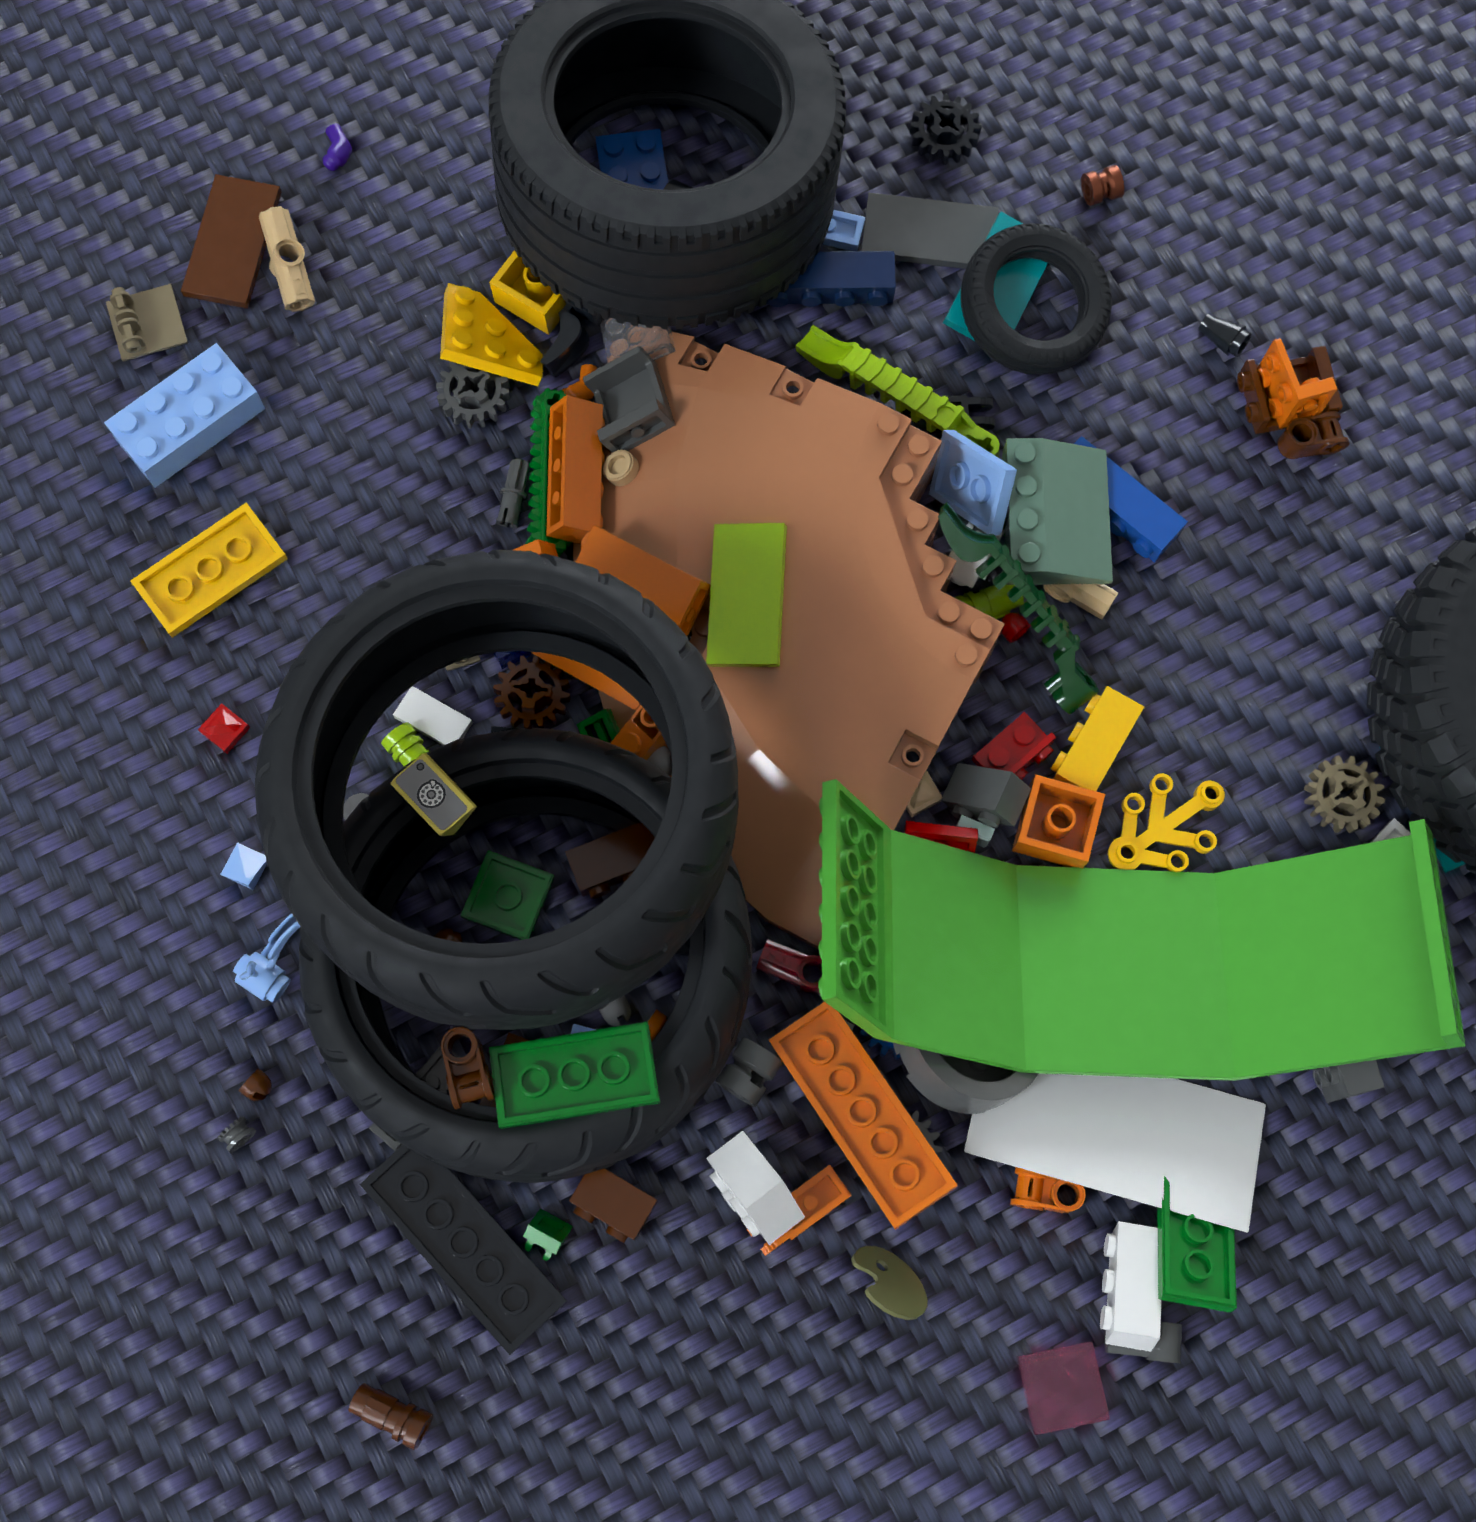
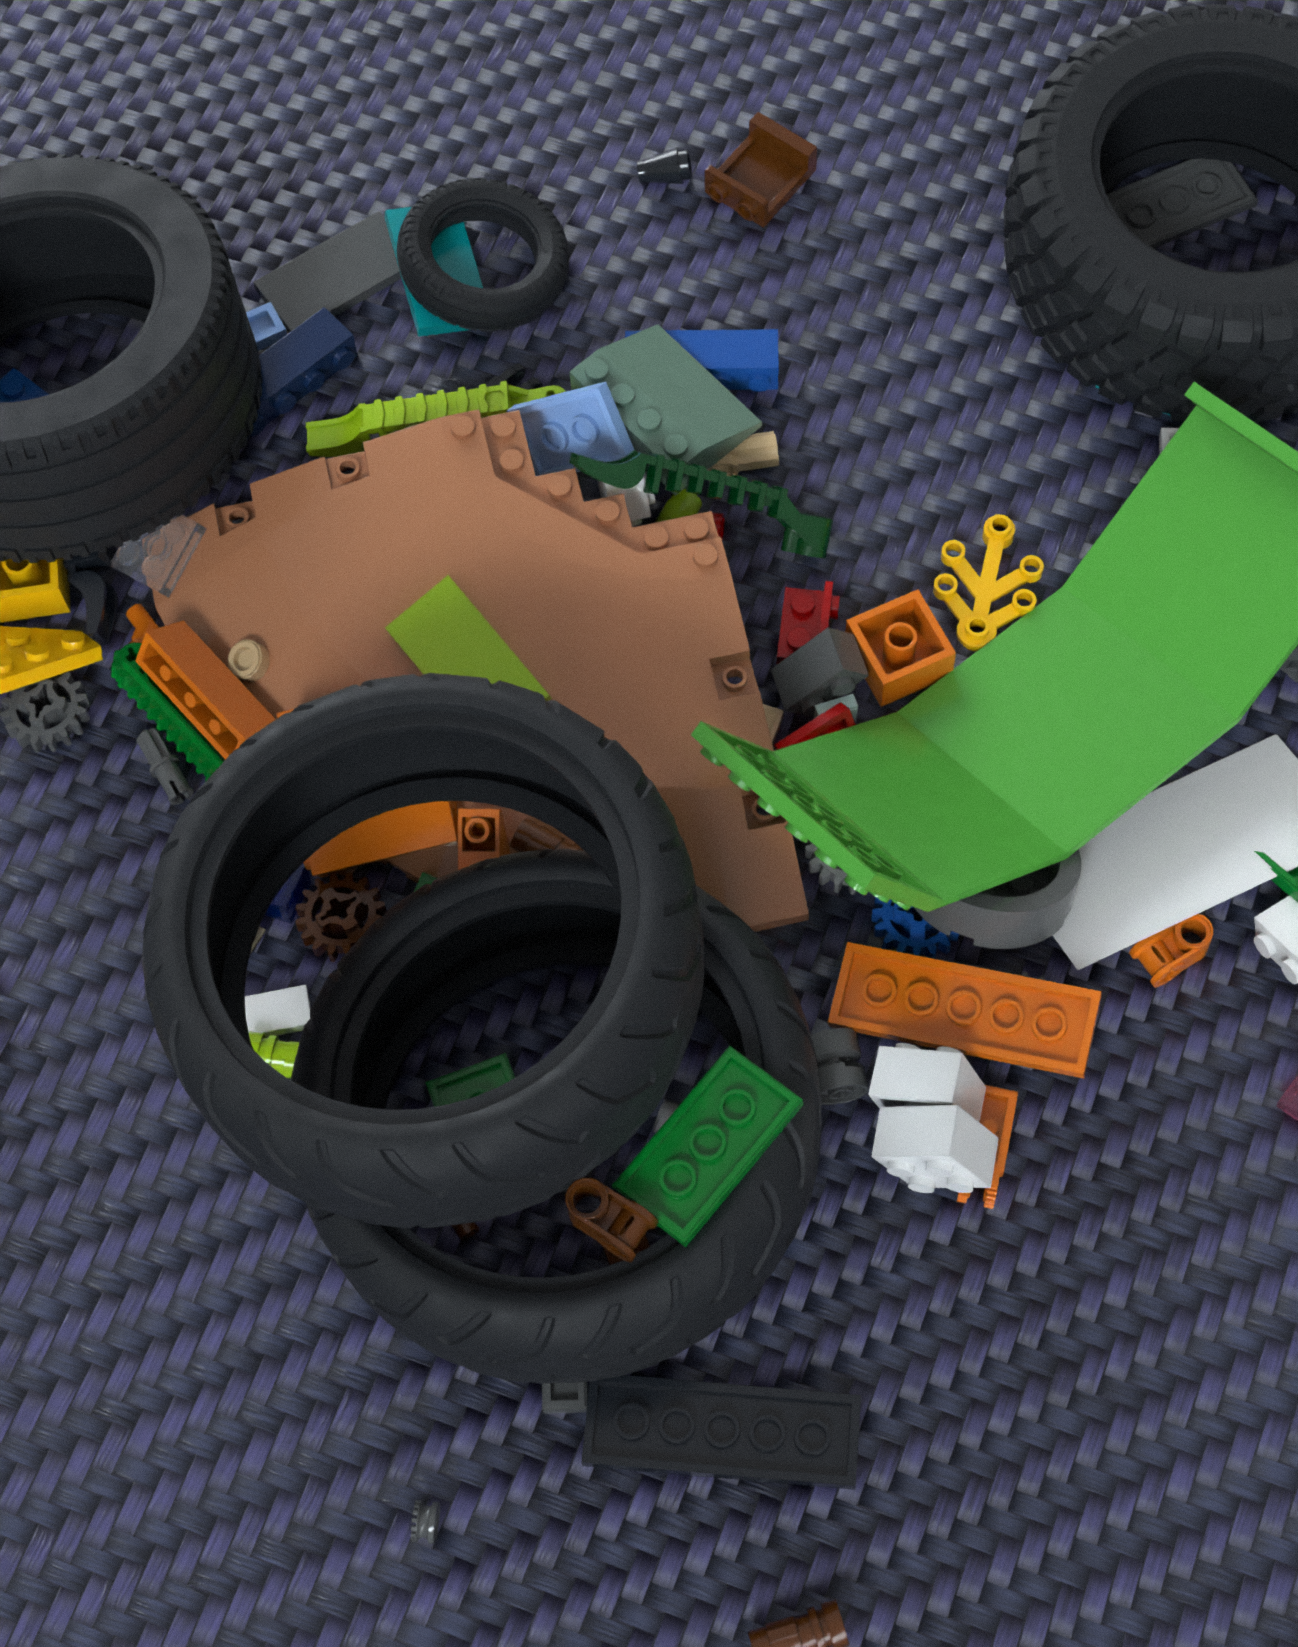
camera: 35 degrees left, 10 degrees down
(224, 728) = (76, 1184): red tile -> none
(245, 866) = (209, 1287): light blue slope -> none
(256, 1086) = (402, 1465): reddish brown hinge -> none
(262, 975) = (314, 1362): light blue plant -> none
(434, 795) = (362, 1018): slope -> none
(546, 1232) = (789, 1353): green tile -> none
(609, 859) = (552, 985): reddish brown brick -> none
(614, 1203) = (823, 1278): reddish brown brick -> none
(631, 400) = (206, 595): dark grey panel -> none
(788, 965) = (834, 932): dark red piece -> none
(789, 1143) = (925, 1078): none -> white brick
(896, 1288) = (1123, 1132): olive piece -> none
(945, 129) = (273, 183): black gear -> none
(1097, 740) = (867, 556): yellow brick -> none
(1102, 185) = (454, 125): copper wheel -> none
(1285, 395) = (760, 167): orange bracket -> none
(1318, 434) = (813, 191): reddish brown piece -> none
(1353, 807) = (1087, 432): dark tan gear -> none

